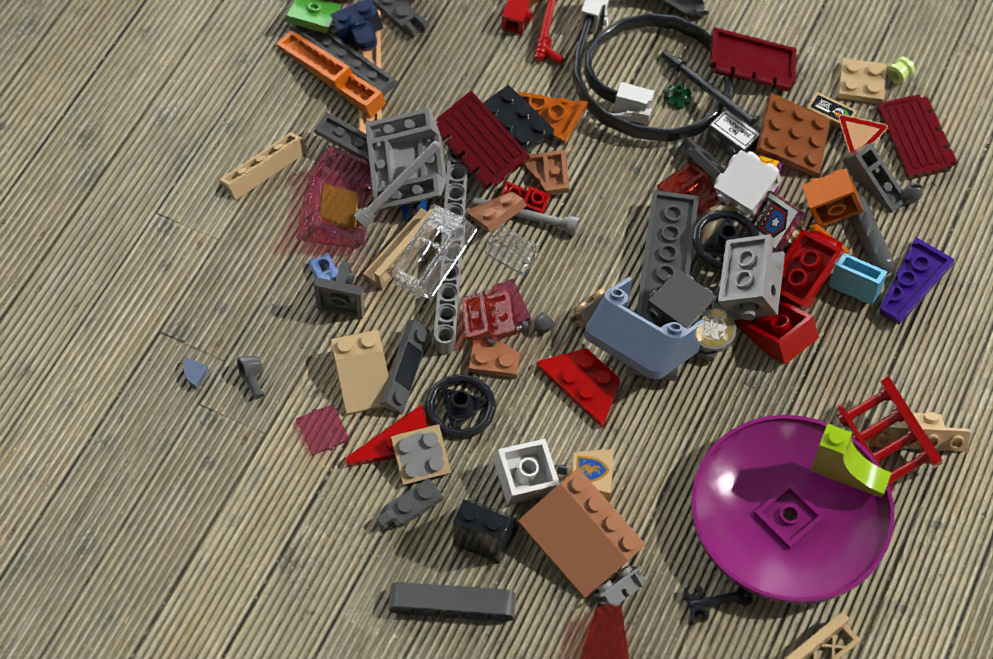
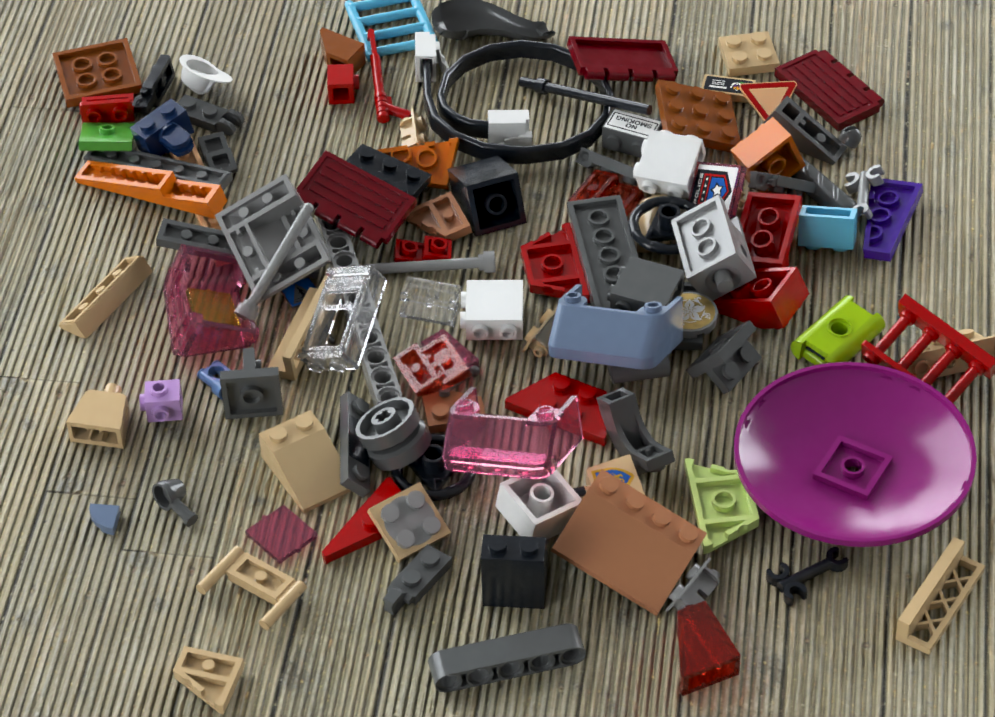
camera: 15 degrees left, 15 degrees down
(220, 280) = (100, 418): none -> tan torso
(223, 542) = (209, 675): none -> tan wing
(271, 281) = (162, 400): none -> lavender brick
(289, 467) = (258, 579): none -> tan plate
(395, 54) = (216, 152): none -> dark grey slope
(435, 372) = (393, 433): none -> dark grey wheel
(496, 211) = (403, 263): nougat wing -> none
(515, 419) = (510, 444): none -> clear pink windscreen
(543, 323) = (496, 361): dark grey hinge -> none
(557, 275) = (492, 310): none -> white brick
(558, 76) = (413, 130): none -> tan hinge
(594, 161) = (488, 195): none -> black slope
(623, 245) = (553, 264): none -> red wing
(623, 430) = (629, 433): none -> dark grey arch
(669, 515) = (719, 504): none -> yellowish green wing
(677, 96) = (553, 115): dark green plant -> none
(727, 379) = (727, 358): none -> dark grey bracket
(834, 225) = (776, 183): none -> dark grey hinge
(836, 372) = (838, 333): none -> lime piece
(842, 462) = (891, 389): lime arch -> none
(900, 70) = (786, 32): yellowish green wheel -> none
(903, 241) = (861, 185): none -> light grey bar

